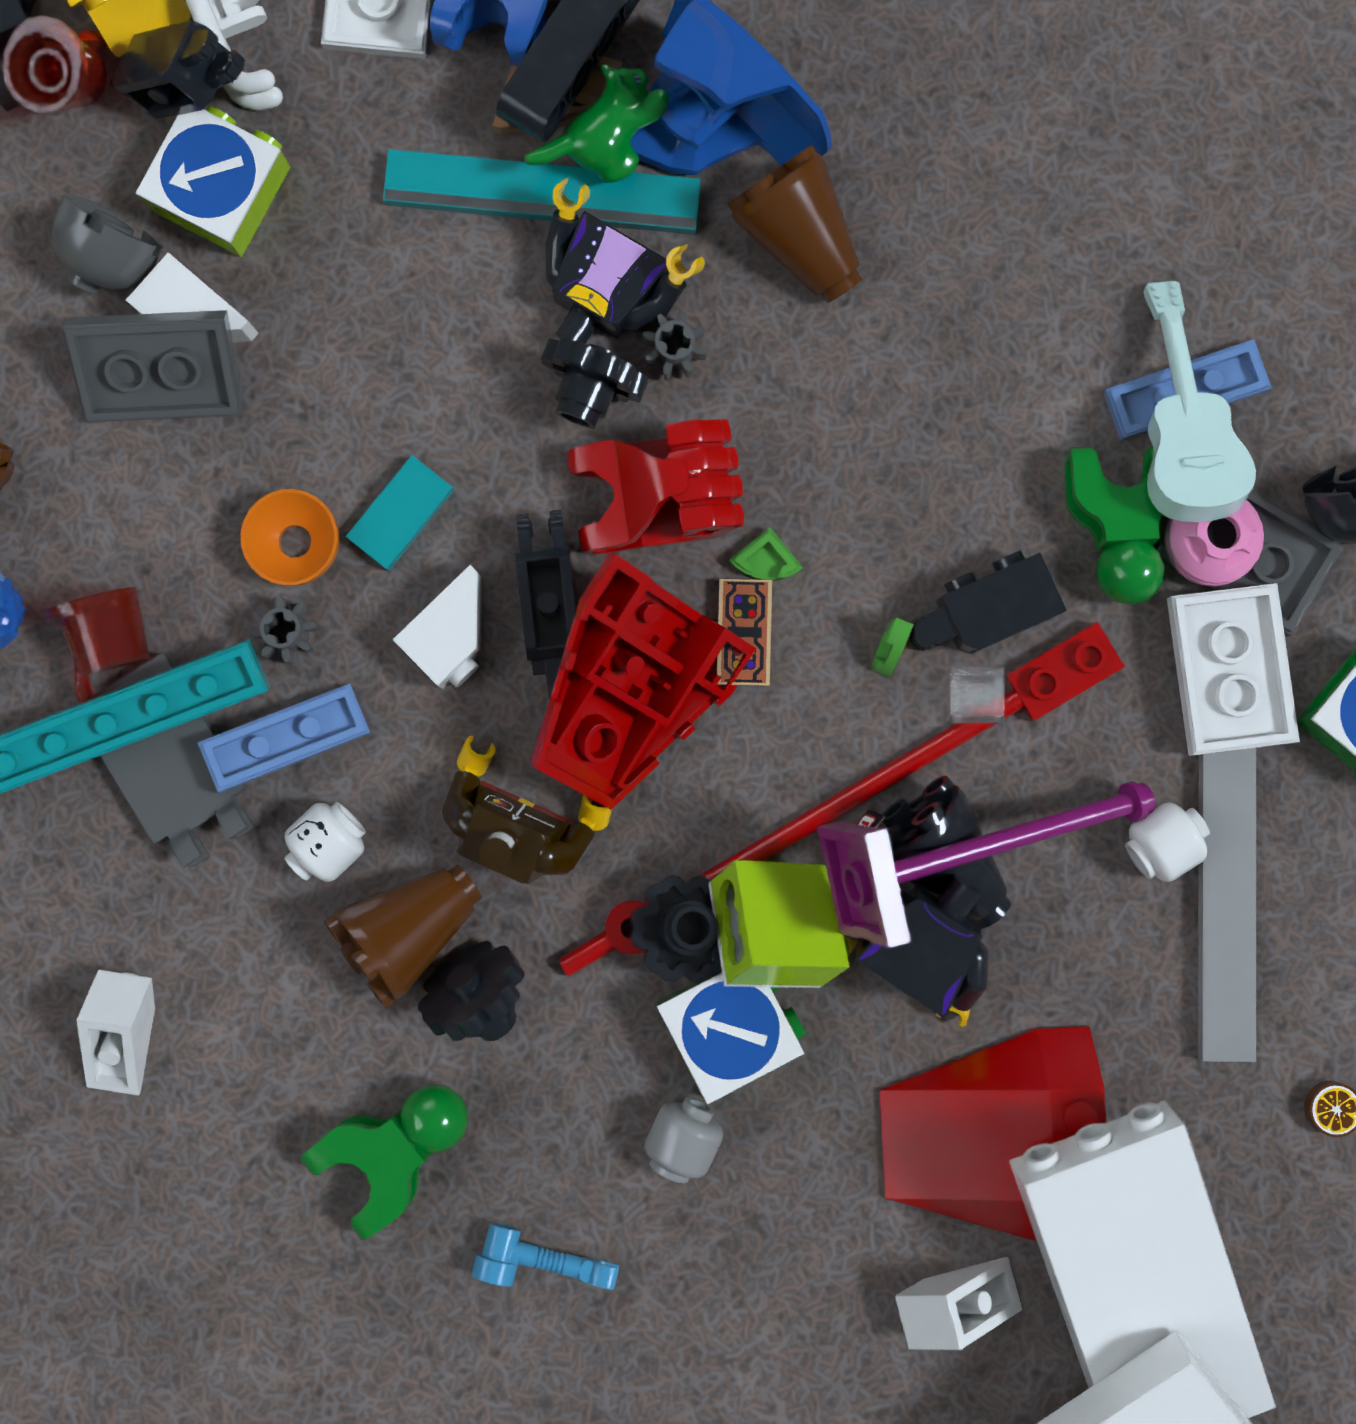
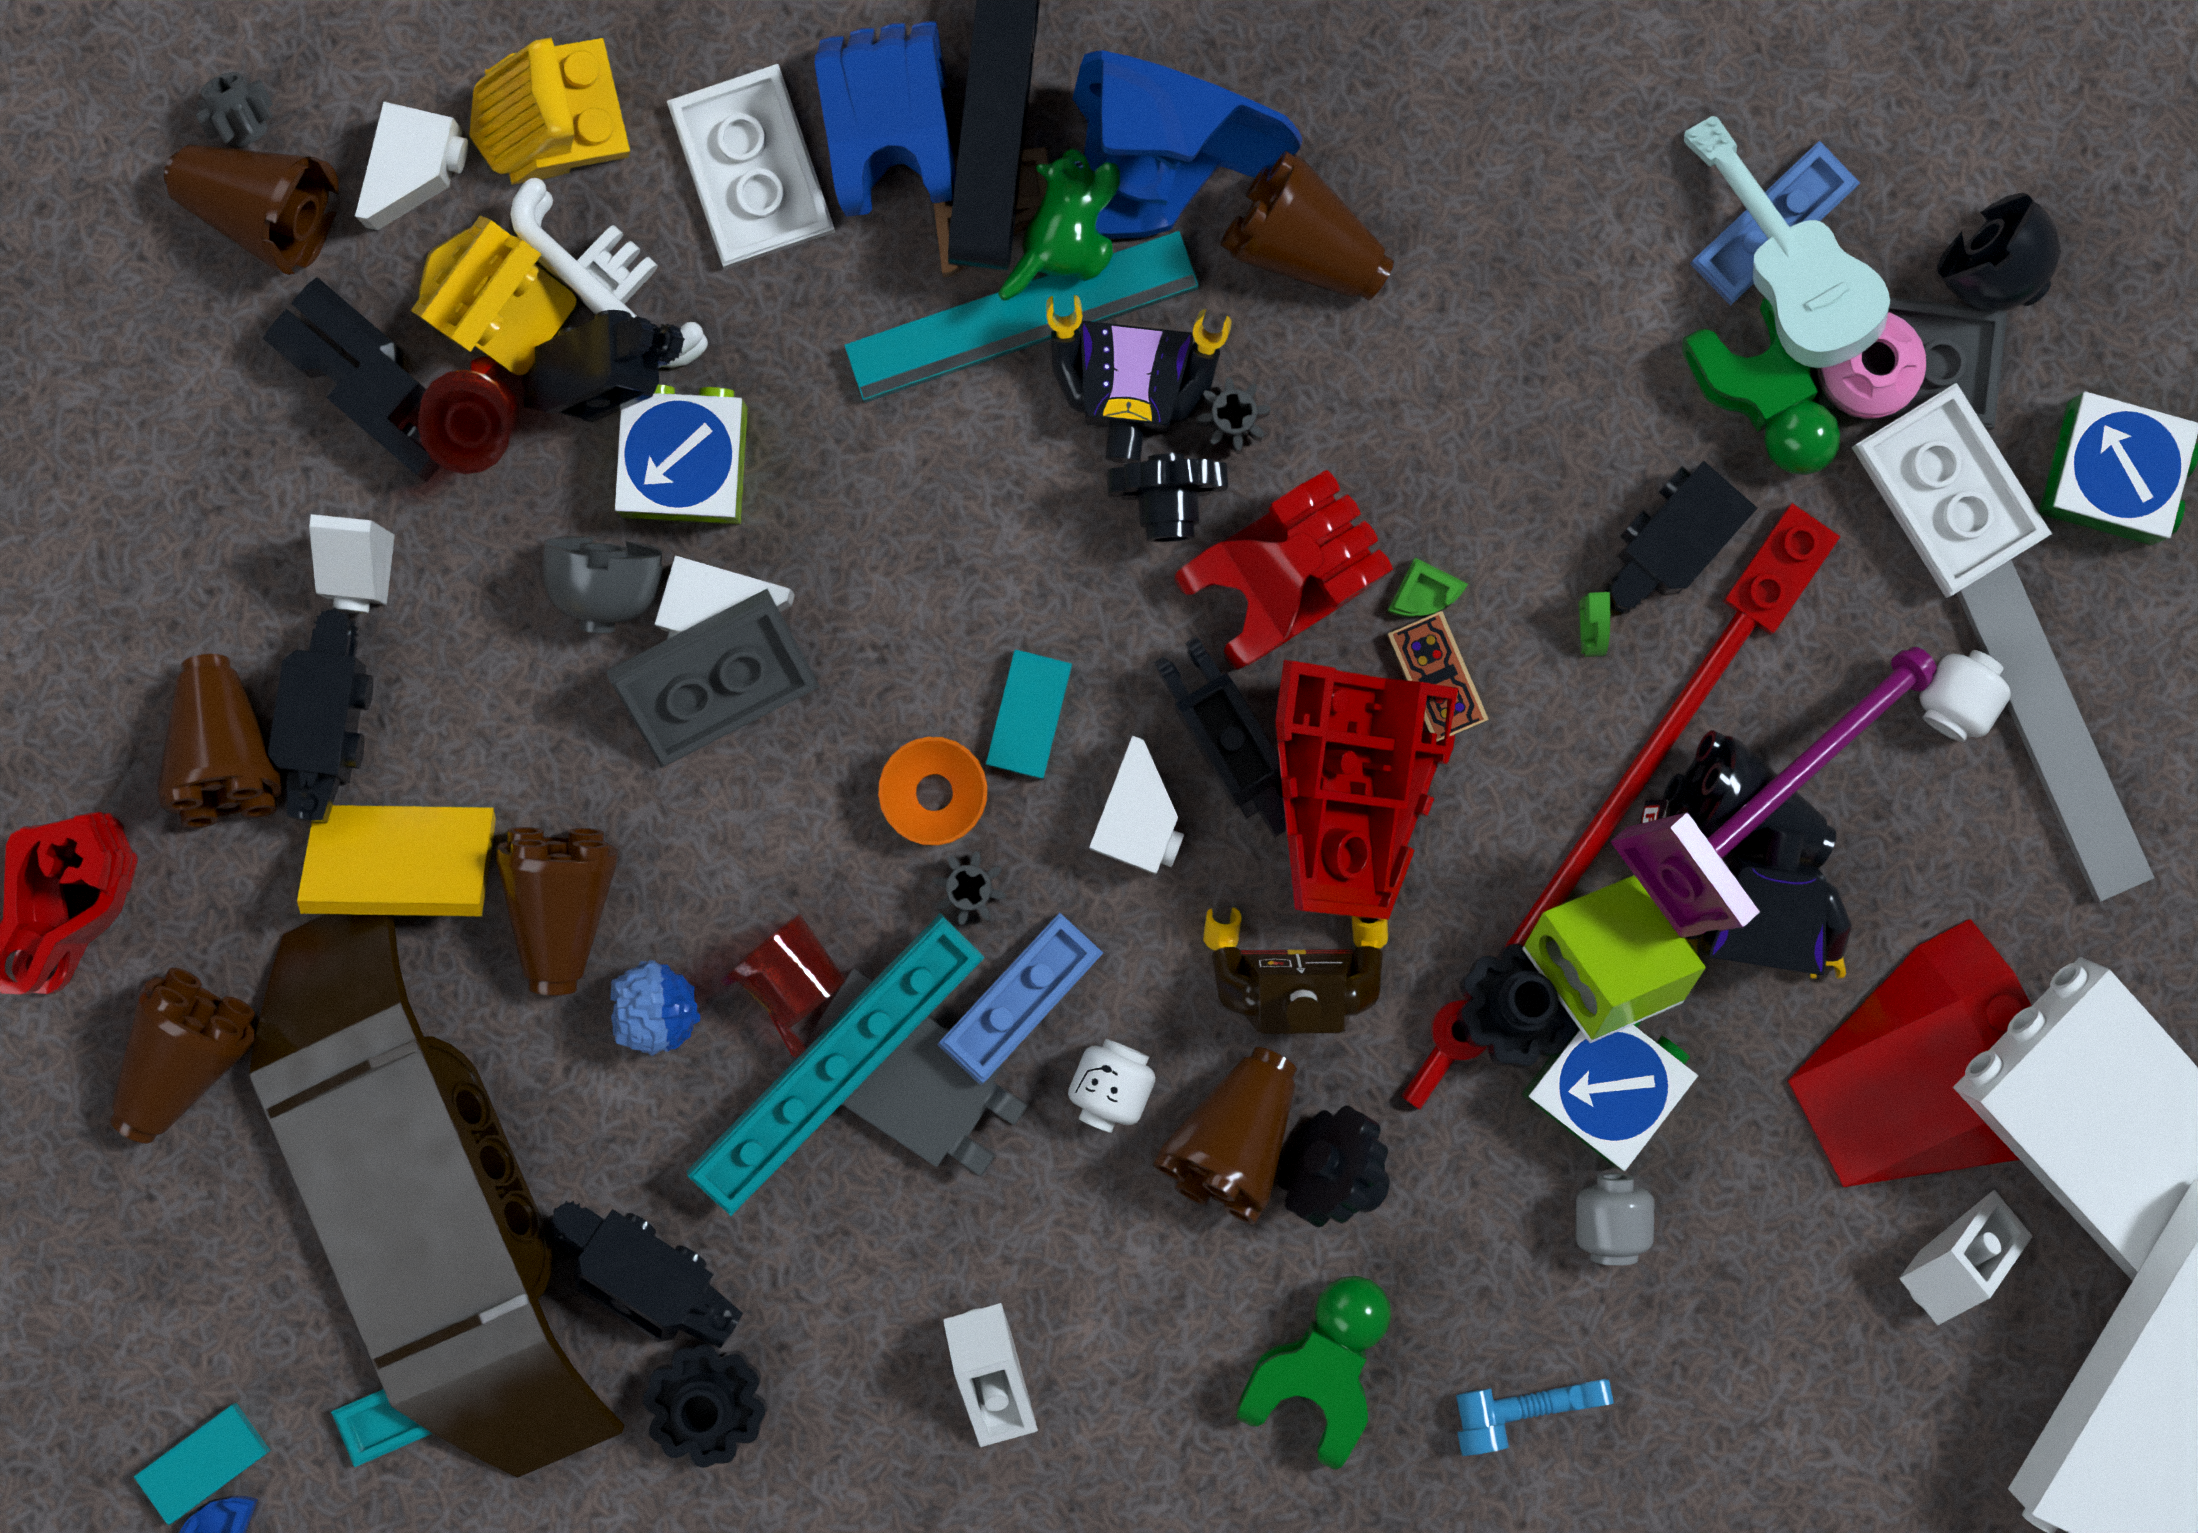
camera: 25 degrees left, 0 degrees up
(977, 695) = (1704, 633): clear tile -> none

